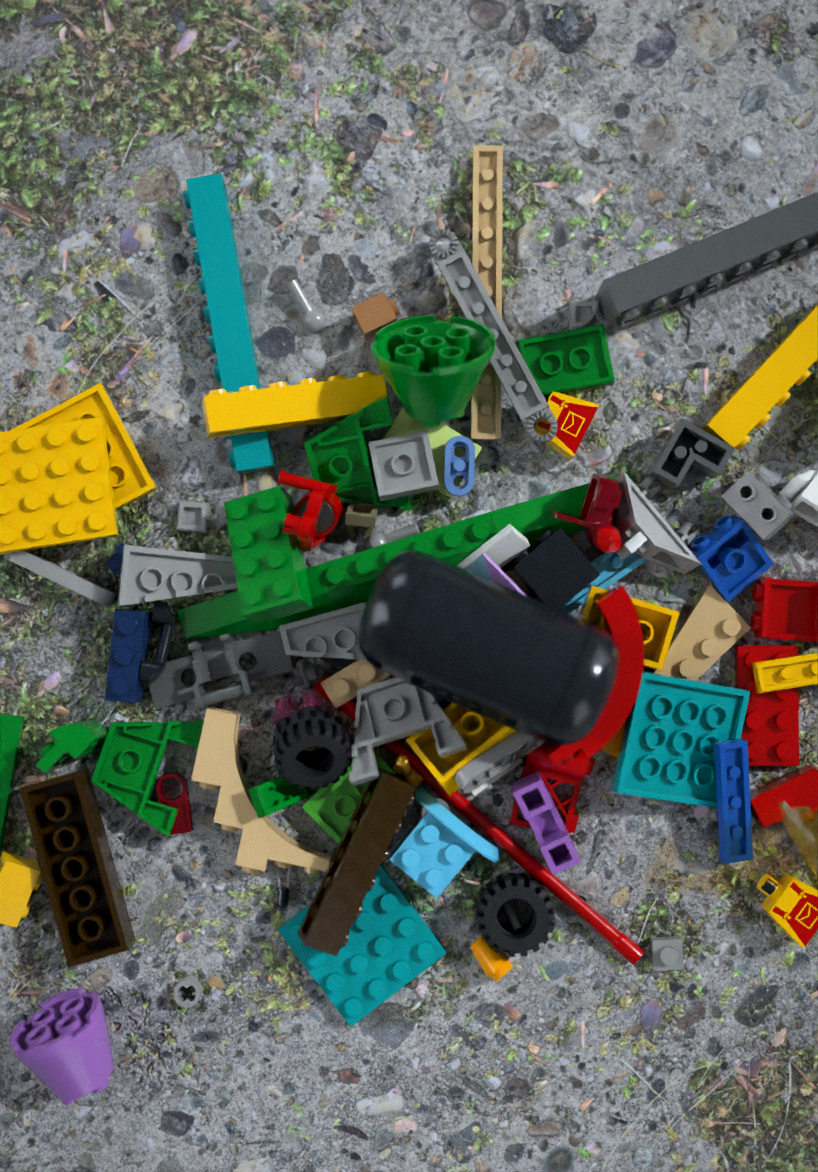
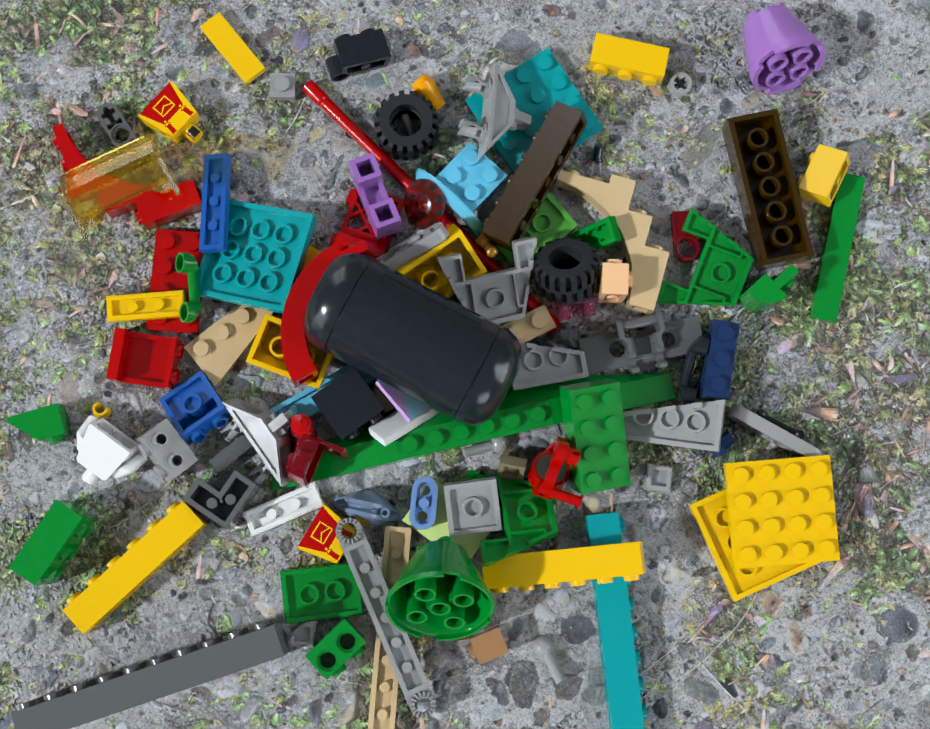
camera: 175 degrees right, 5 degrees down
(34, 578) = (798, 433): none -> black hinge
(251, 1018) = (628, 59): none -> yellow brick
(254, 739) = (614, 281): none -> light nougat brick
(405, 938) = (498, 110): none -> light grey connector
(485, 818) = (424, 203): none -> clear red dish
(523, 458) = (367, 507): none -> sand blue hat
(548, 304) = (332, 644): none -> green brick
(580, 1000) = (358, 54): none -> black hinge
(617, 451) = (283, 509): none -> white tile
(685, 507) = (230, 453): none -> dark grey bar
(732, 997) = (232, 48): none -> yellow tile
(759, 723) = (187, 264): none -> green bar

